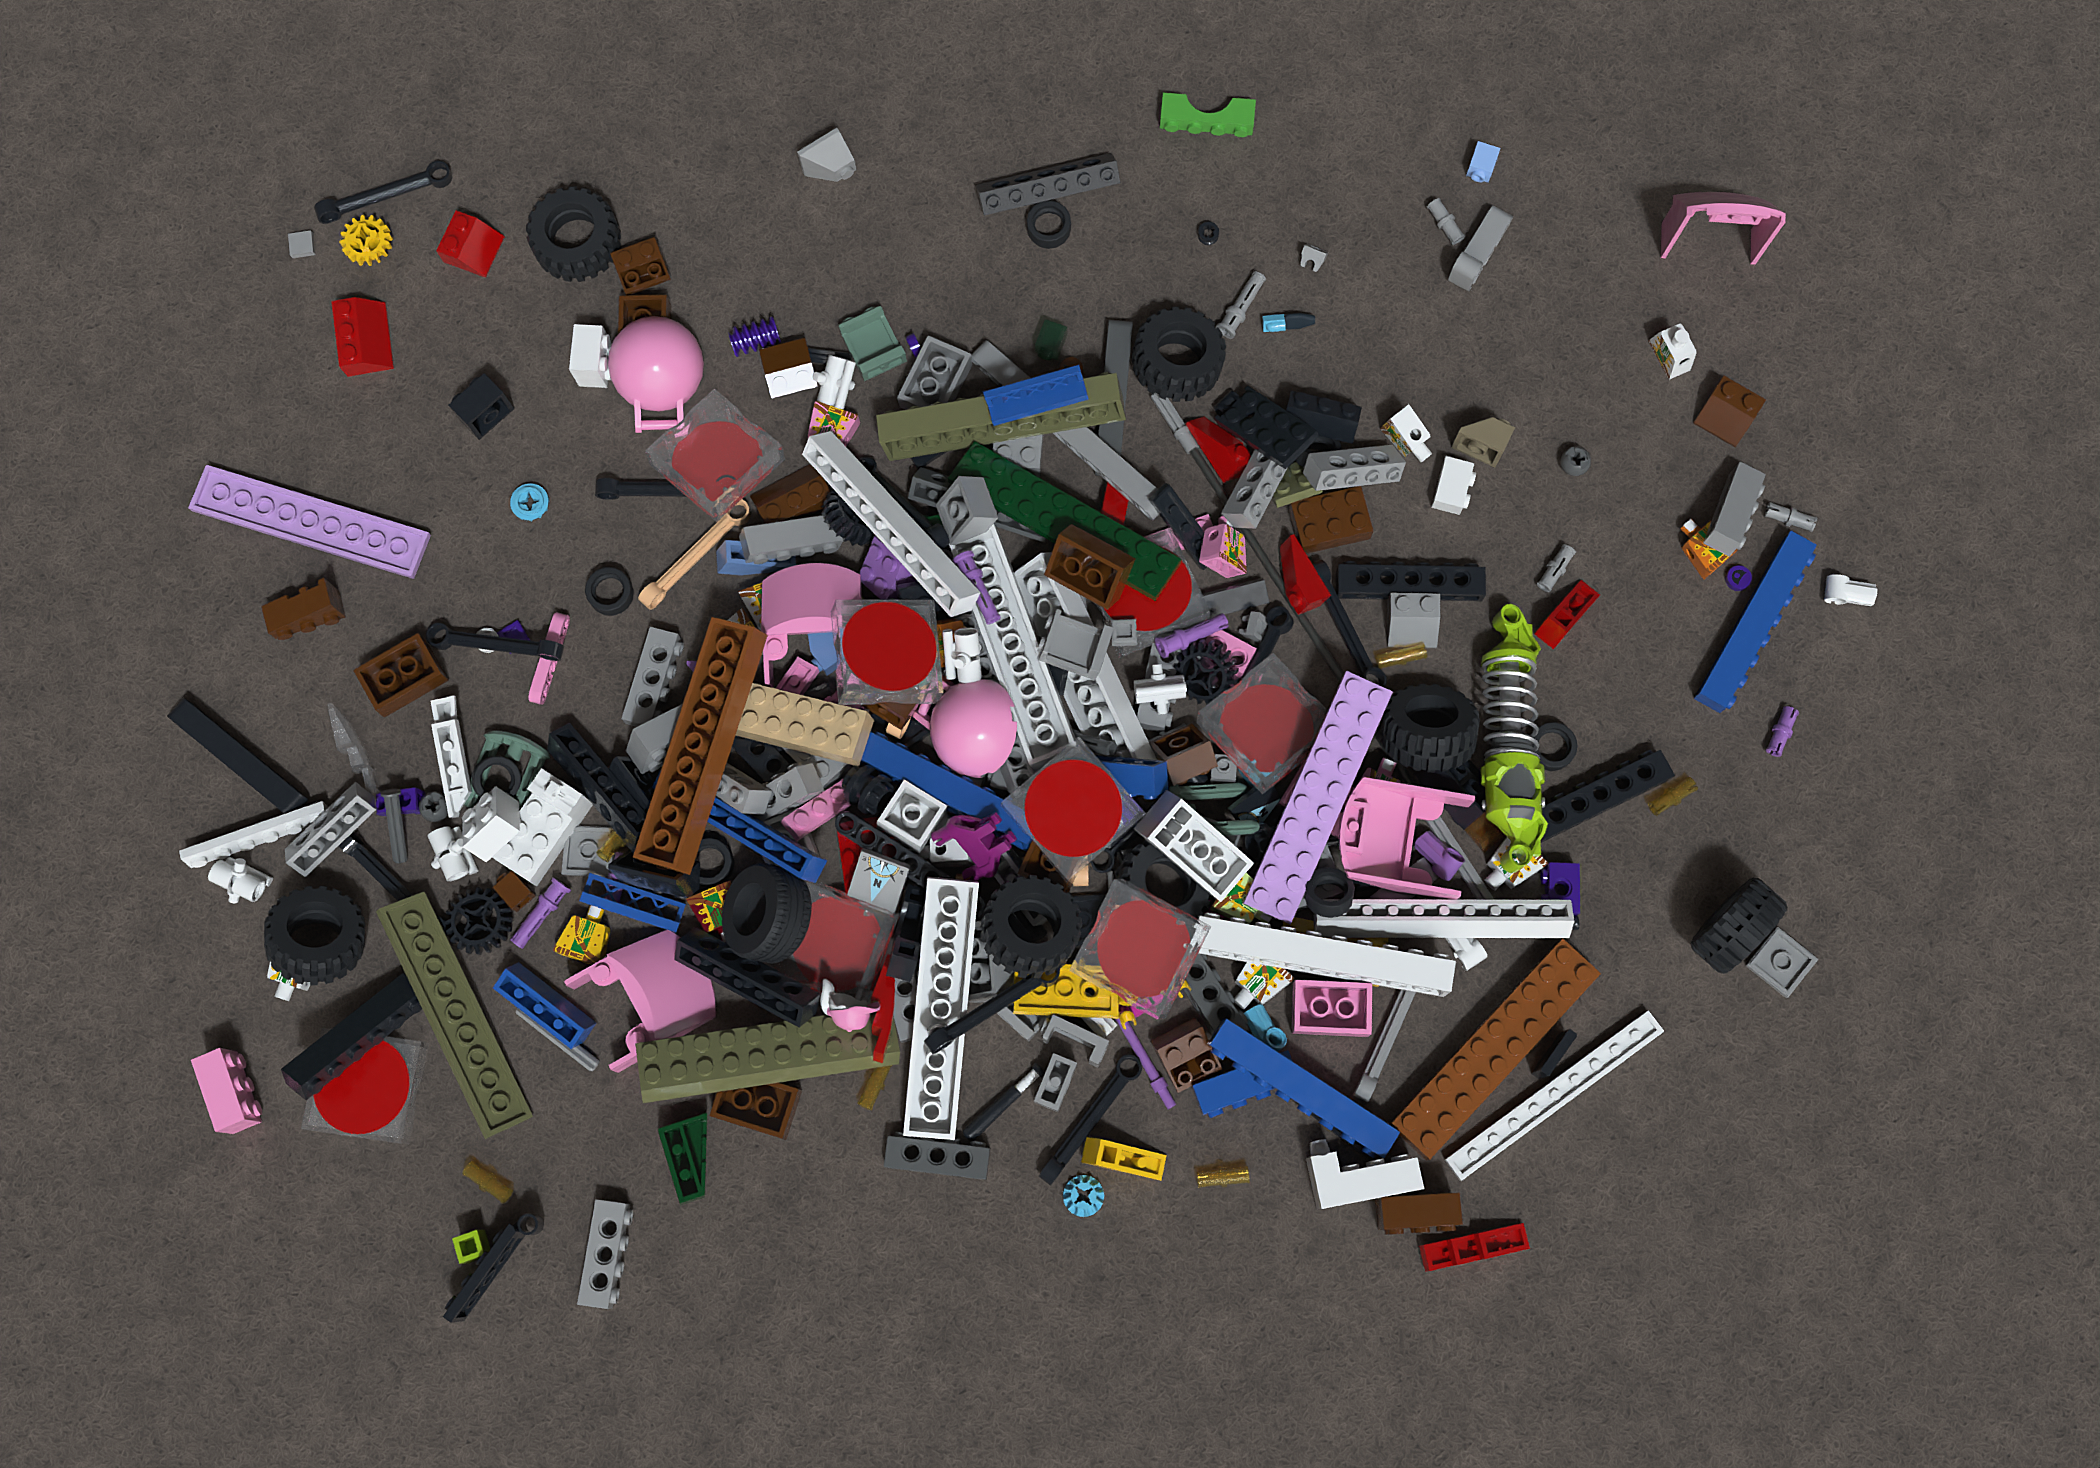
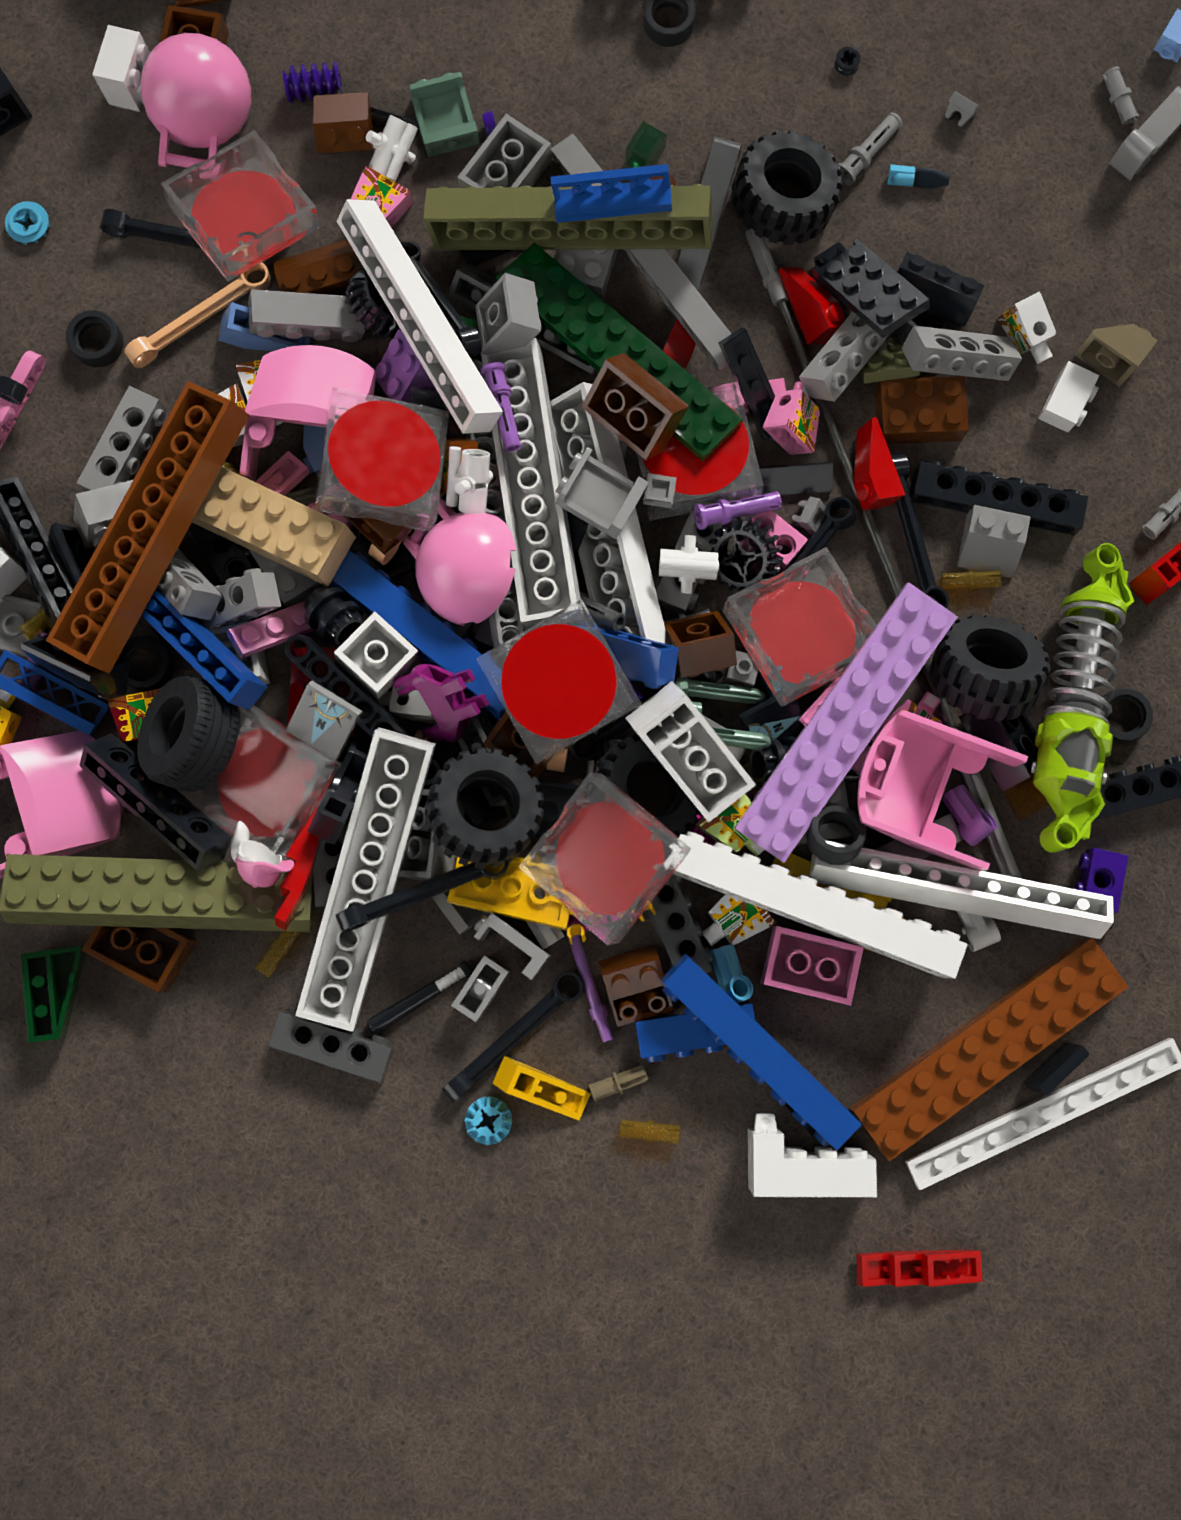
camera: 10 degrees right, 5 degrees up
(1188, 1141) = (618, 1082): none -> dark tan axle
(1384, 1044) = (836, 1054): light grey piece -> none
(1418, 1213) = (866, 1220): reddish brown brick -> none
(1501, 876) = (1034, 851): white torso -> none

